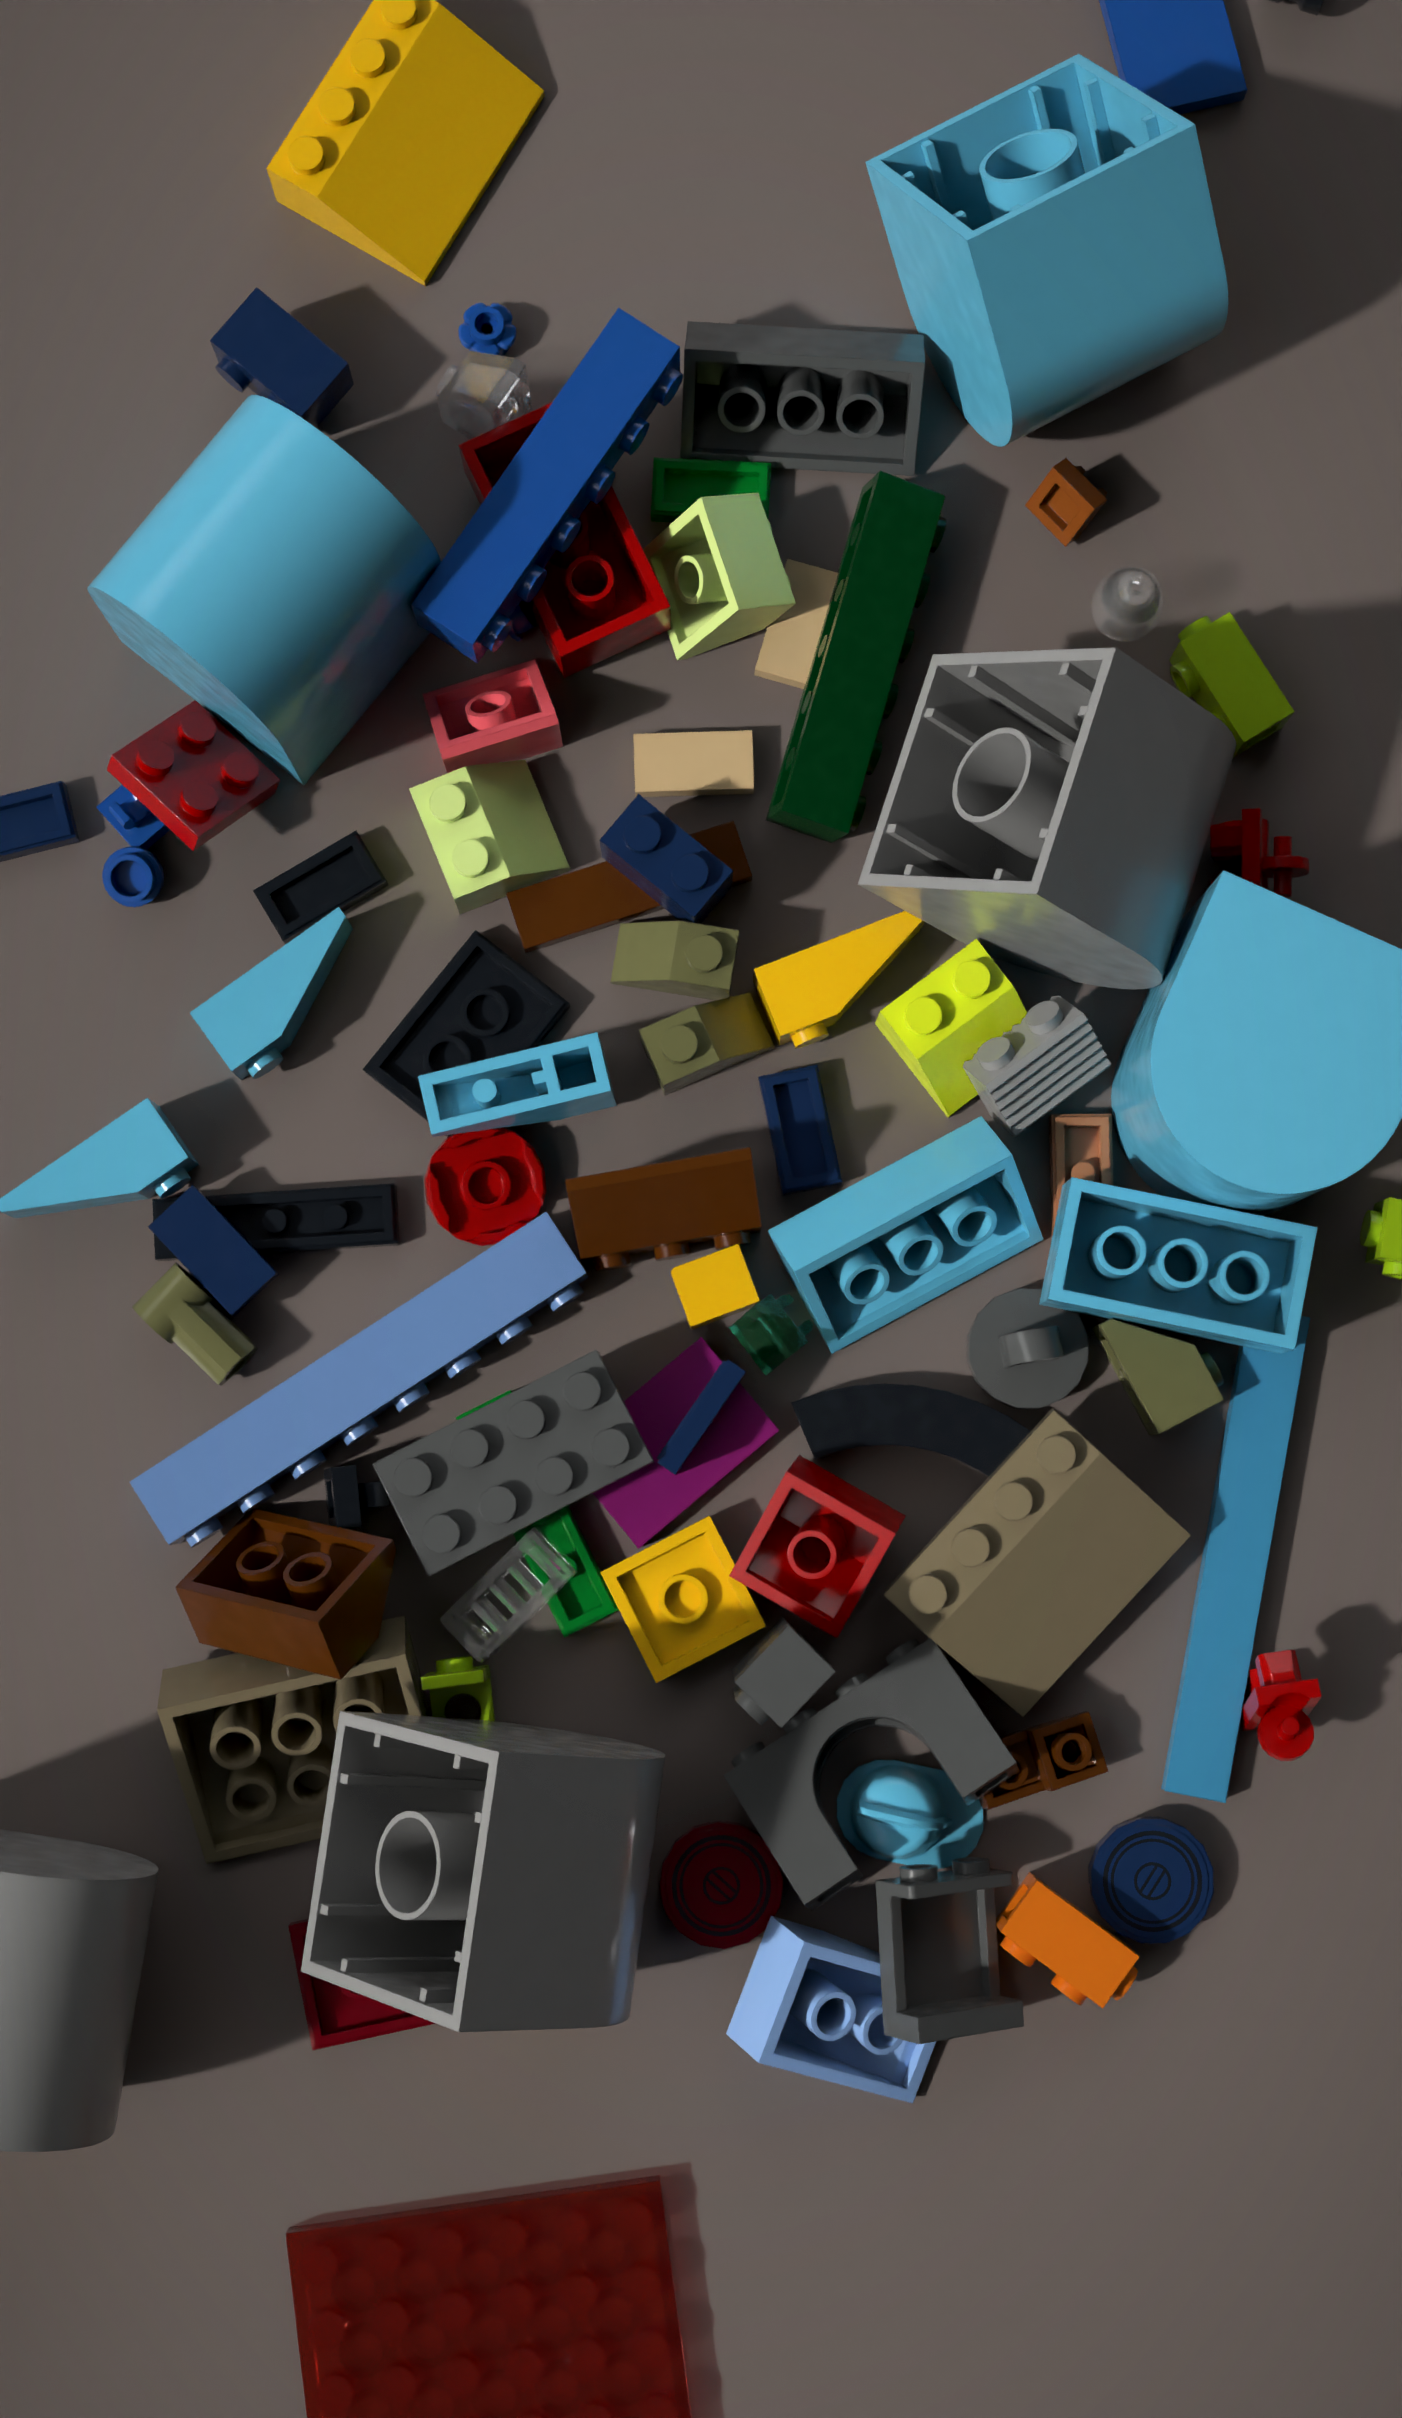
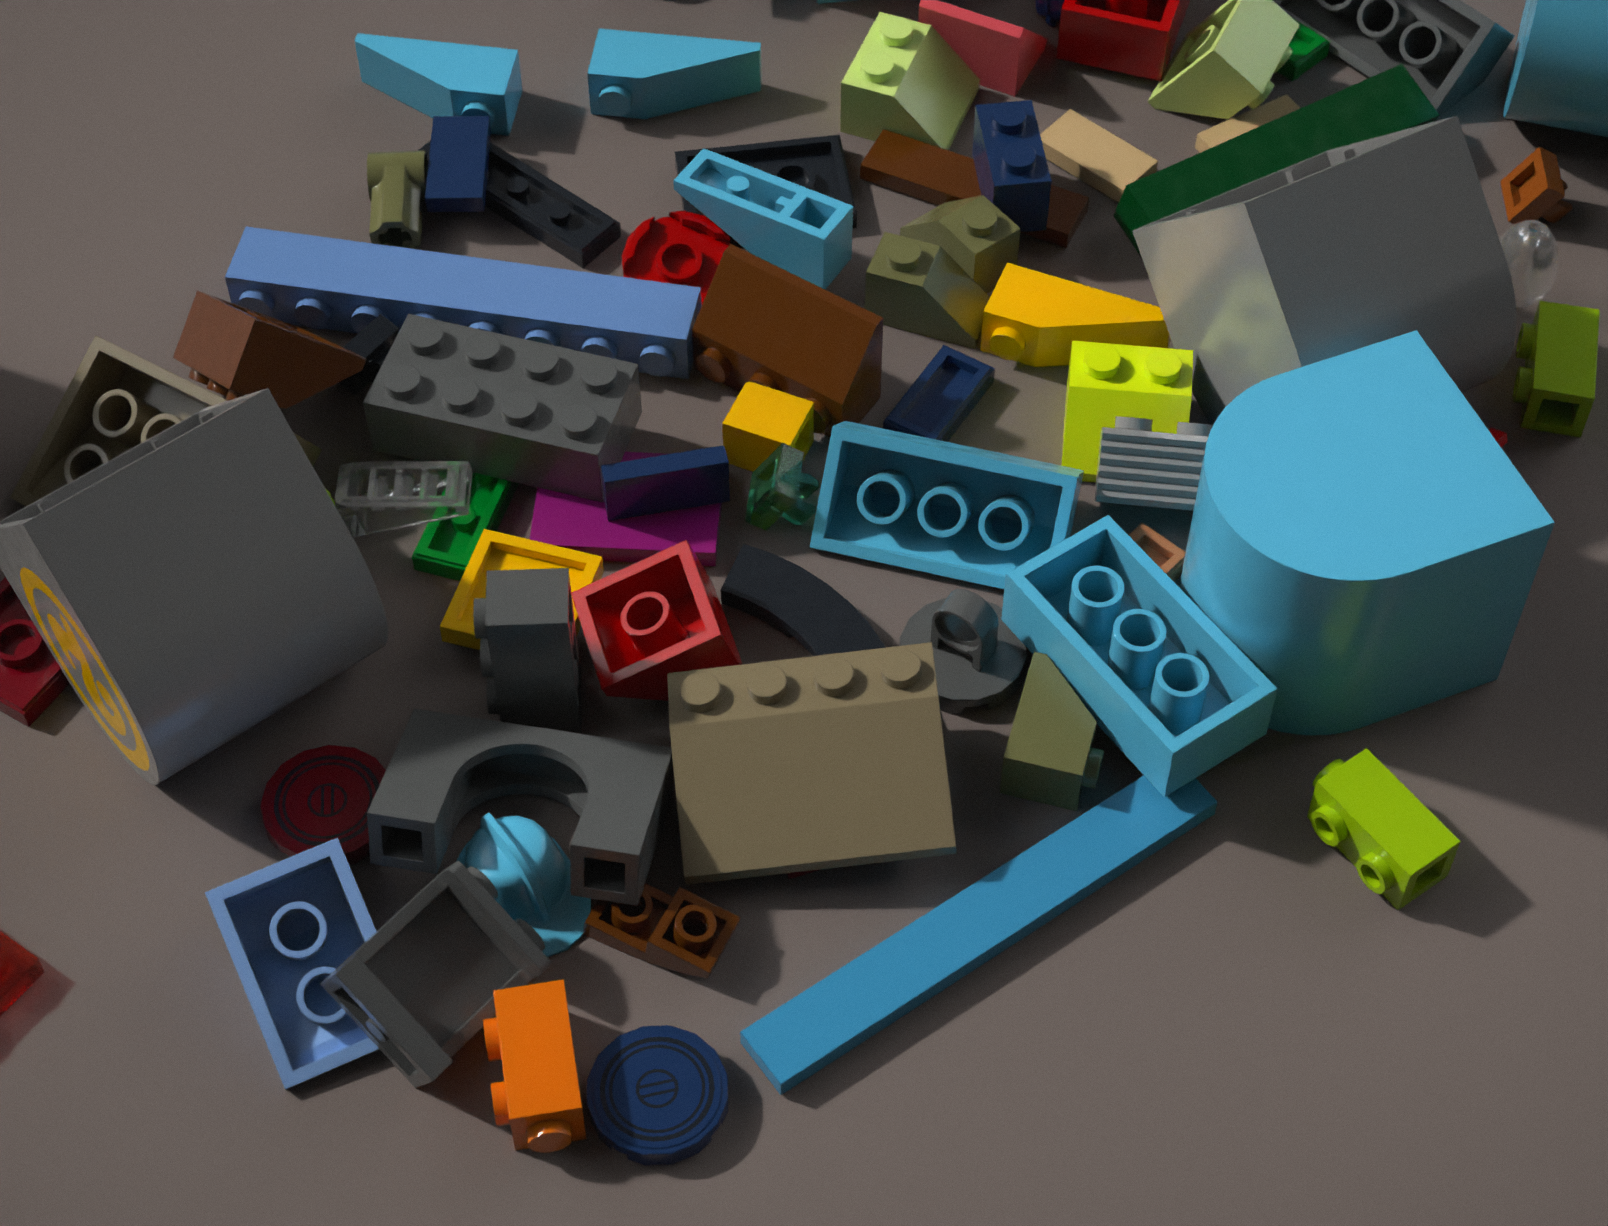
camera: 45 degrees right, 30 degrees down
(317, 886) = (784, 53): black tile -> none
(1280, 1705) = (903, 1022): red hips -> none

